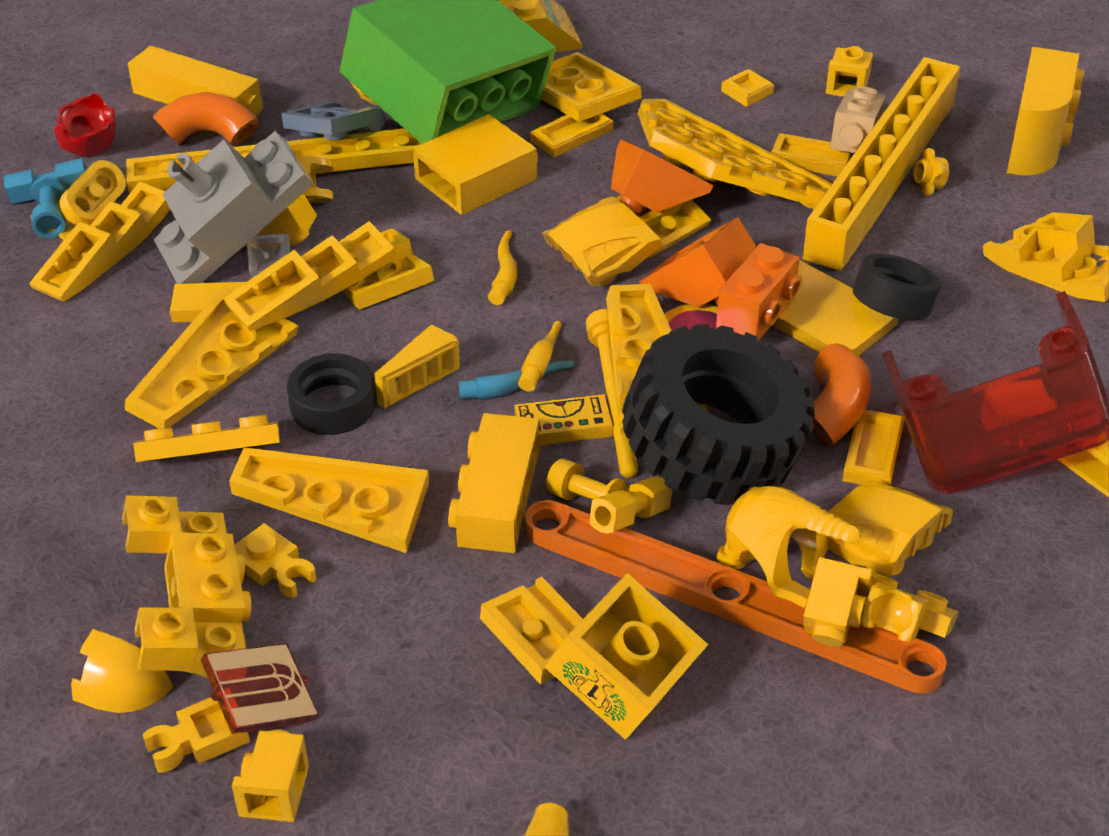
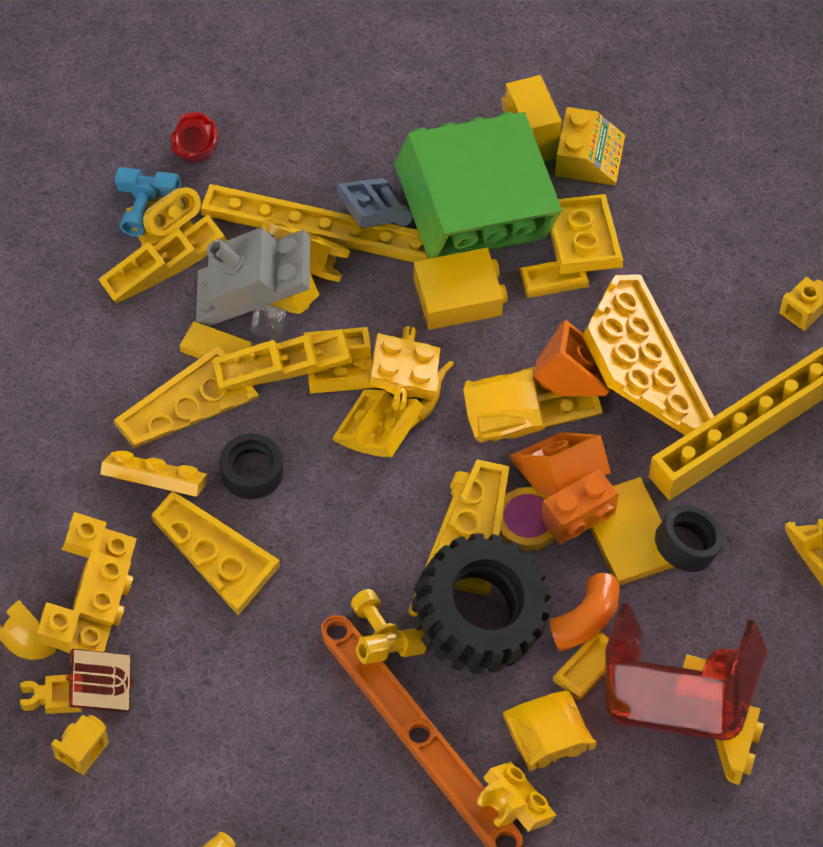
camera: 25 degrees right, 15 degrees up
(171, 75) = (293, 122): yellow brick -> none
(207, 112) = (286, 159): orange cylinder -> none
(273, 556) = (152, 581): yellow plate -> none
(417, 365) = (322, 465): yellow slope -> none
(462, 243) = (404, 367): none -> yellow plate
(463, 304) = (375, 425): none -> yellow slope
(495, 483) = (319, 587): yellow brick -> none
(501, 384) = (376, 504): dark azure animal -> none
(531, 624) = (287, 711): yellow plate -> none
(538, 359) = (403, 493): yellow animal -> none
(569, 418) = (393, 552): yellow tile -> none
(625, 655) = (319, 759): yellow brick -> none
(747, 87) = (718, 284): yellow tile -> none
(761, 529) = (461, 701): yellow piece -> none
(811, 154) = (722, 376): yellow tile -> none
(835, 601) = (465, 780): yellow brick -> none
(856, 118) = (769, 361): tan brick -> none
(931, 172) = (797, 435): yellow plate -> none

